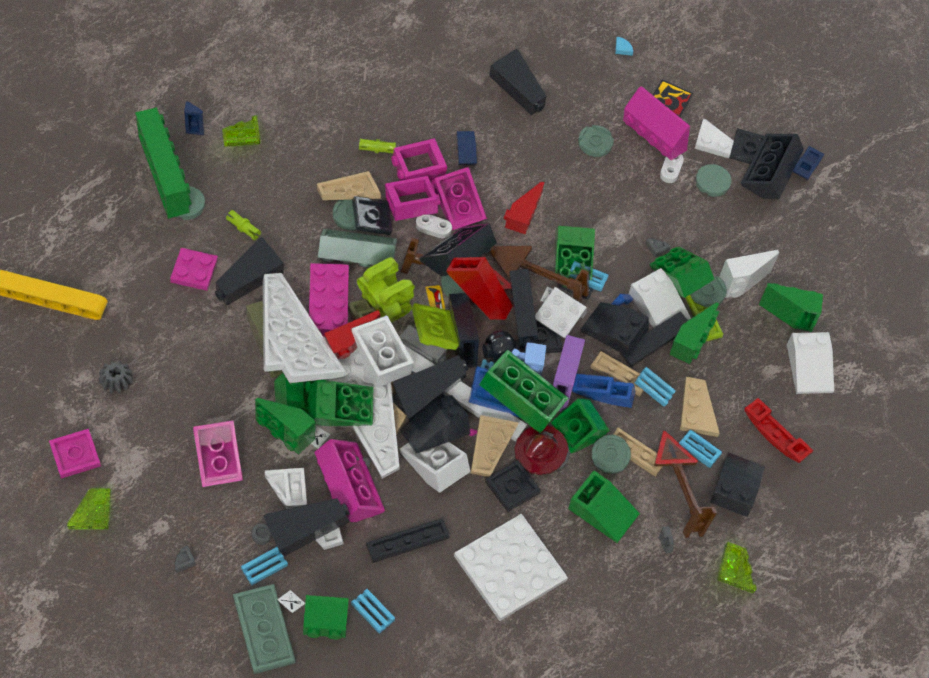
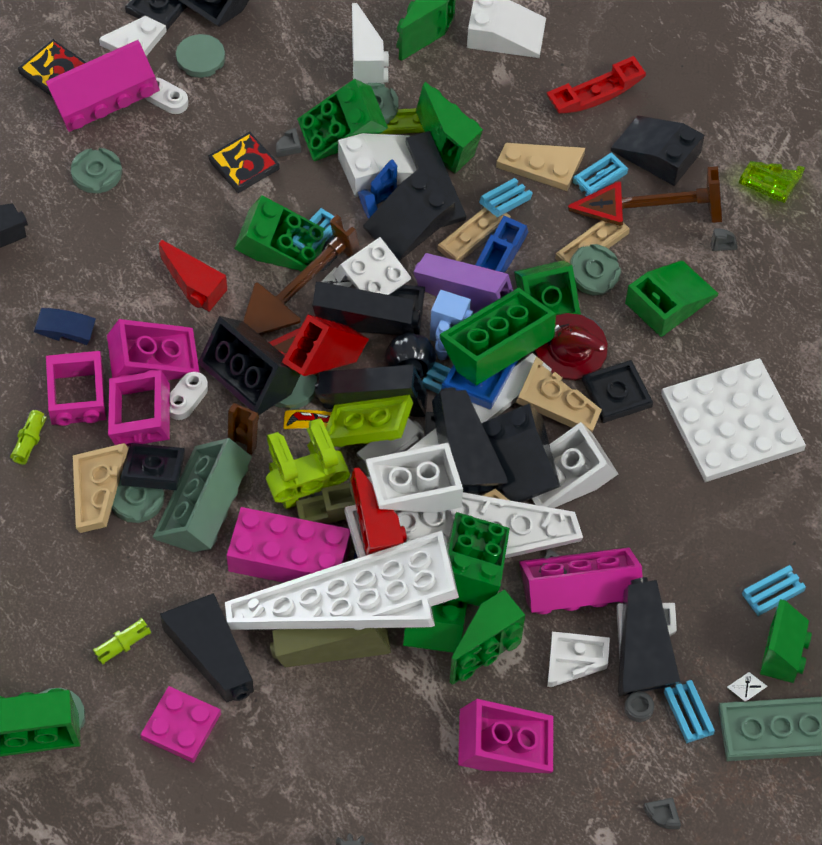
camera: 70 degrees left, 0 degrees up
(407, 540) = (677, 530): black tile -> none
(631, 222) = (244, 162): none -> tile
(638, 303) = (385, 182): none -> blue tile

